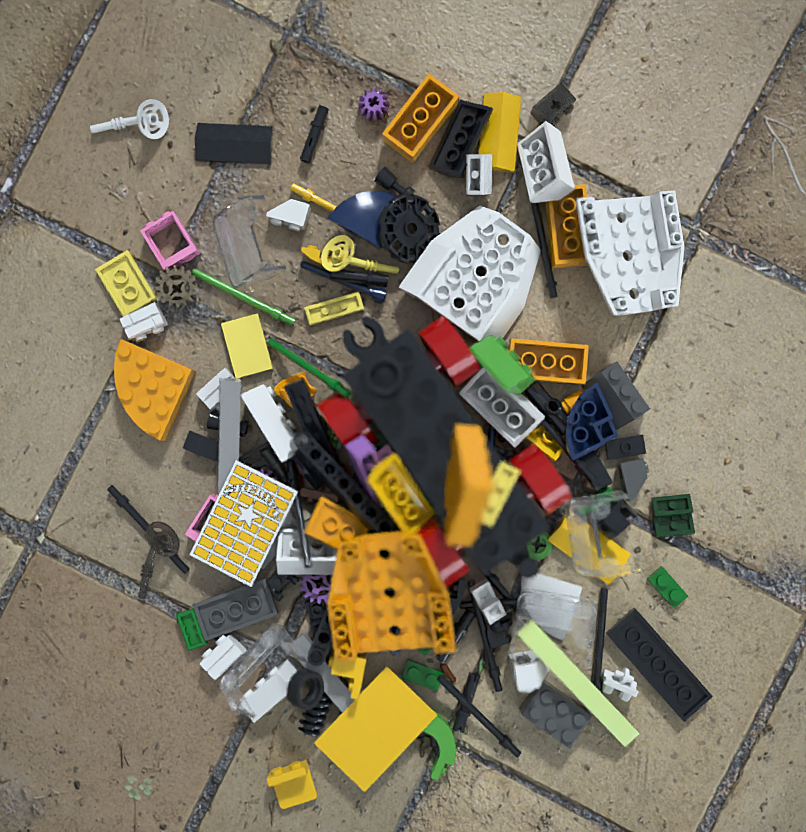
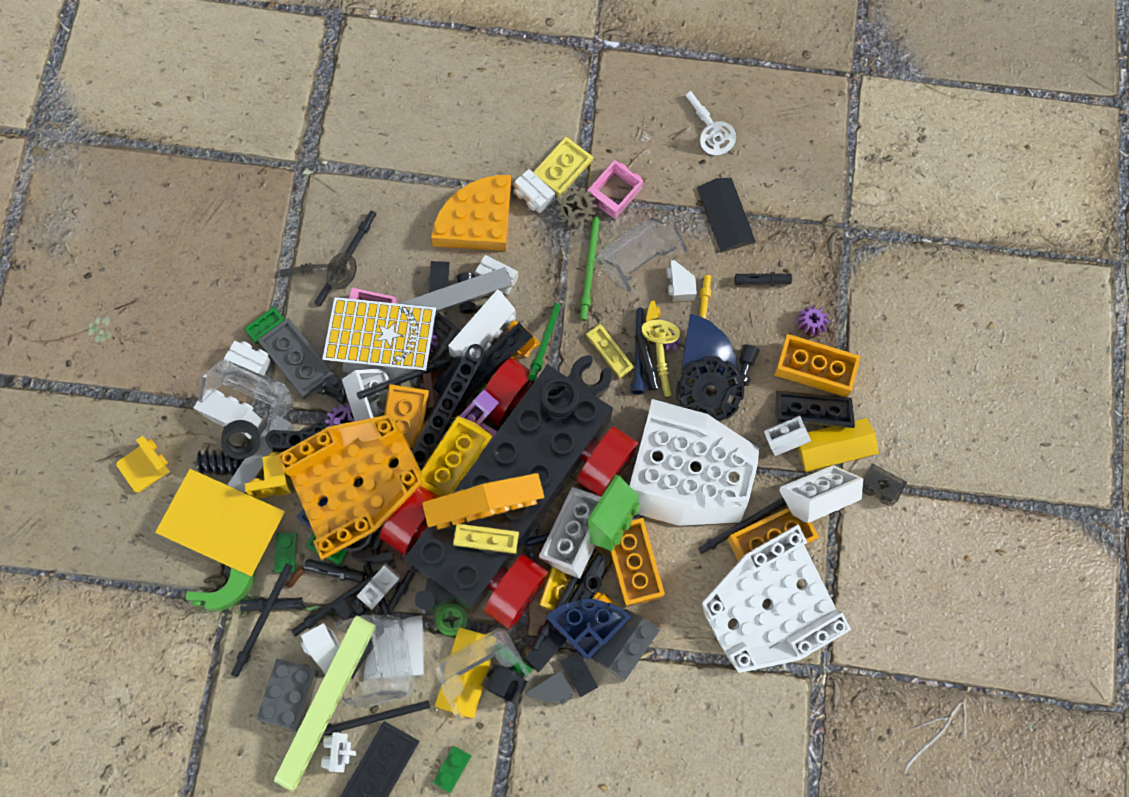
camera: 65 degrees right, 15 degrees down
(247, 346) = (545, 286): light yellow tile -> none
(672, 515) = (526, 748): dark green slope -> none

